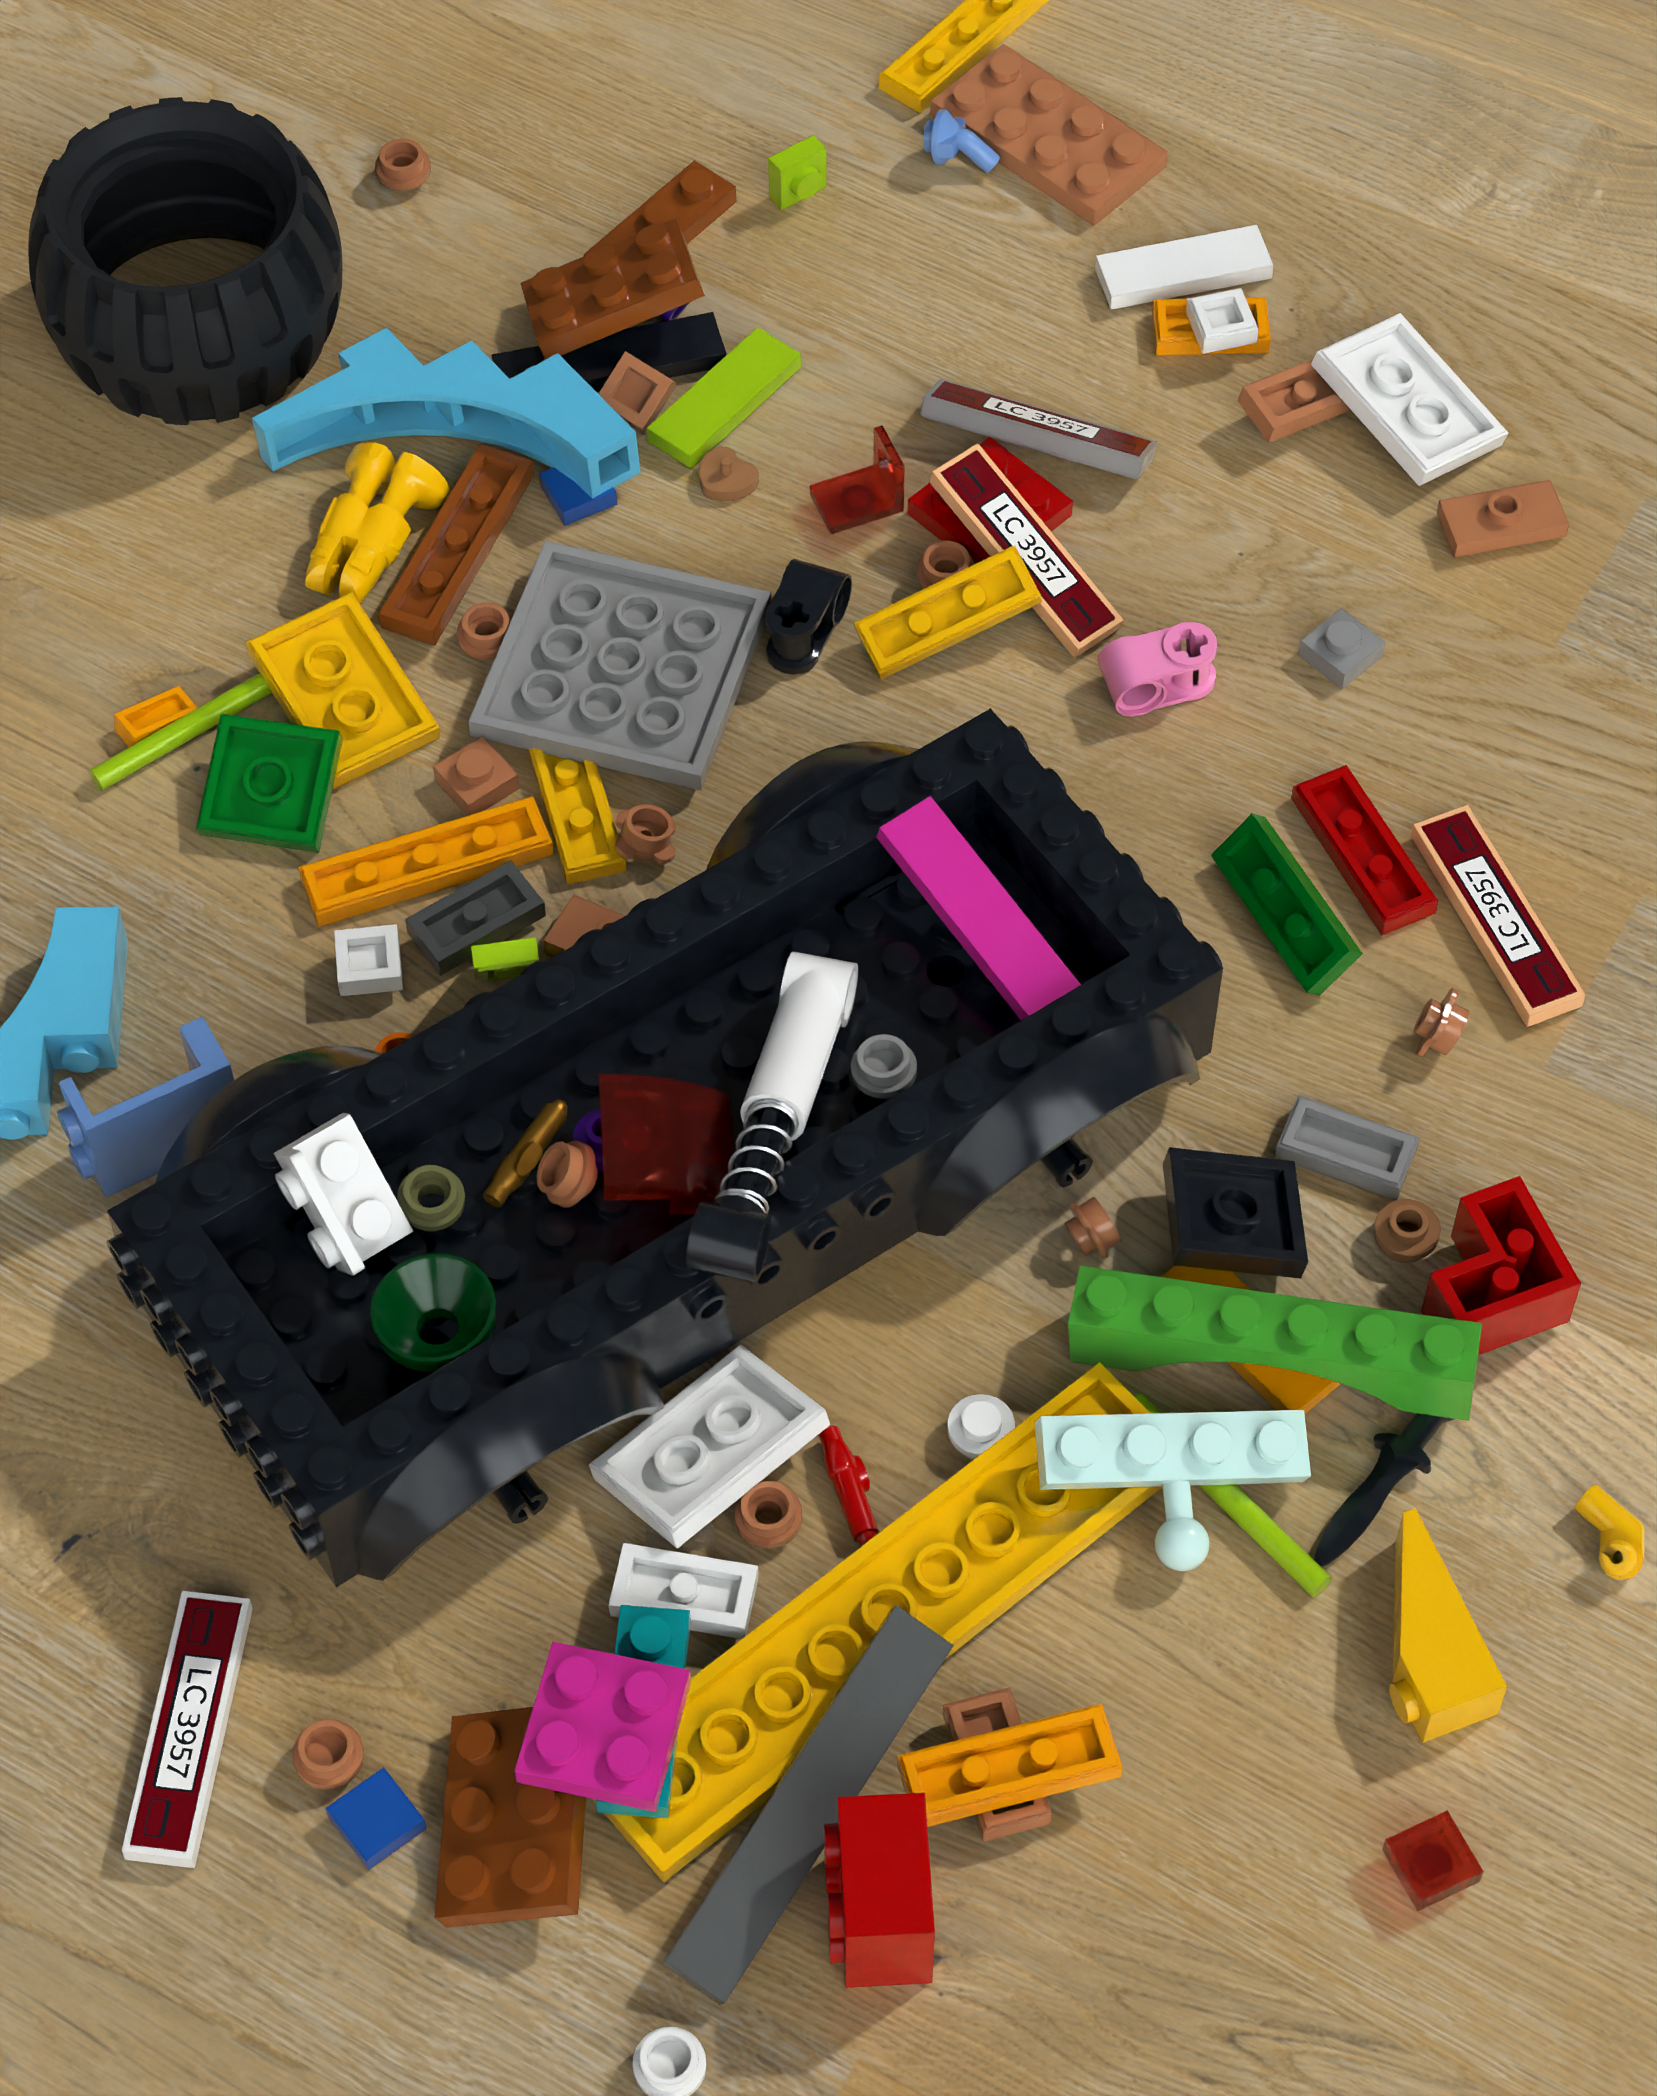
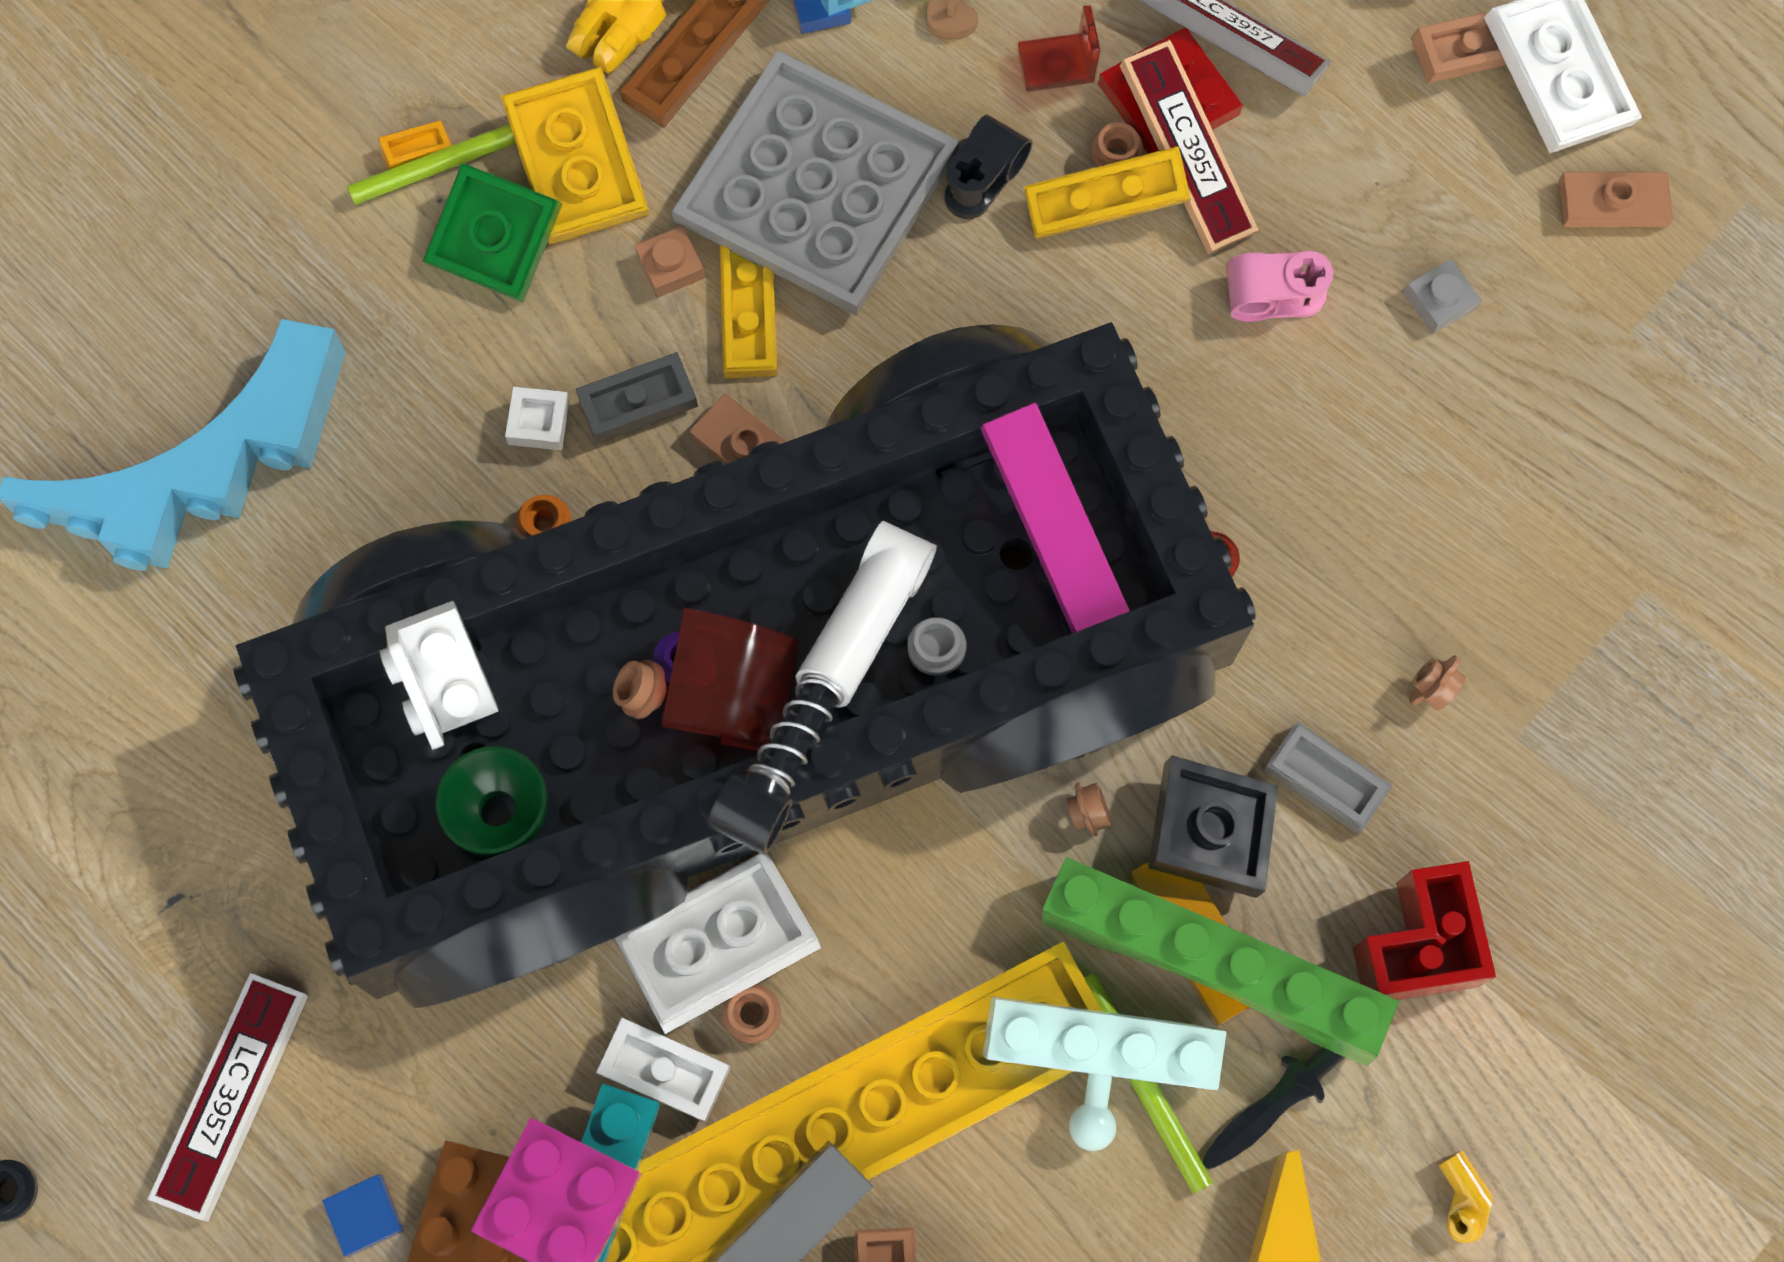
camera: 10 degrees right, 15 degrees up
(135, 1135) = (316, 546): medium blue panel -> none
(328, 1754) = (337, 1148): nougat plate -> none
(425, 861) = (608, 332): light orange tile -> none
(426, 1181) = (509, 669): olive plate -> none
(481, 620) = (704, 113): nougat plate -> none
(503, 958) = (642, 457): lime tile -> none
(526, 1153) = (613, 656): pearl gold piece -> none
(645, 834) = (802, 337): nougat plate -> none
(850, 1483) = (828, 997): red piece -> none
(978, 1424) = (949, 972): white plate -> none
(1286, 904) = (1332, 538): green plate -> none
(1364, 850) = (1413, 495): red tile -> none
(1403, 1245) = (1350, 884): medium nougat plate -> none
(1498, 916) = (1514, 585): tile -> none

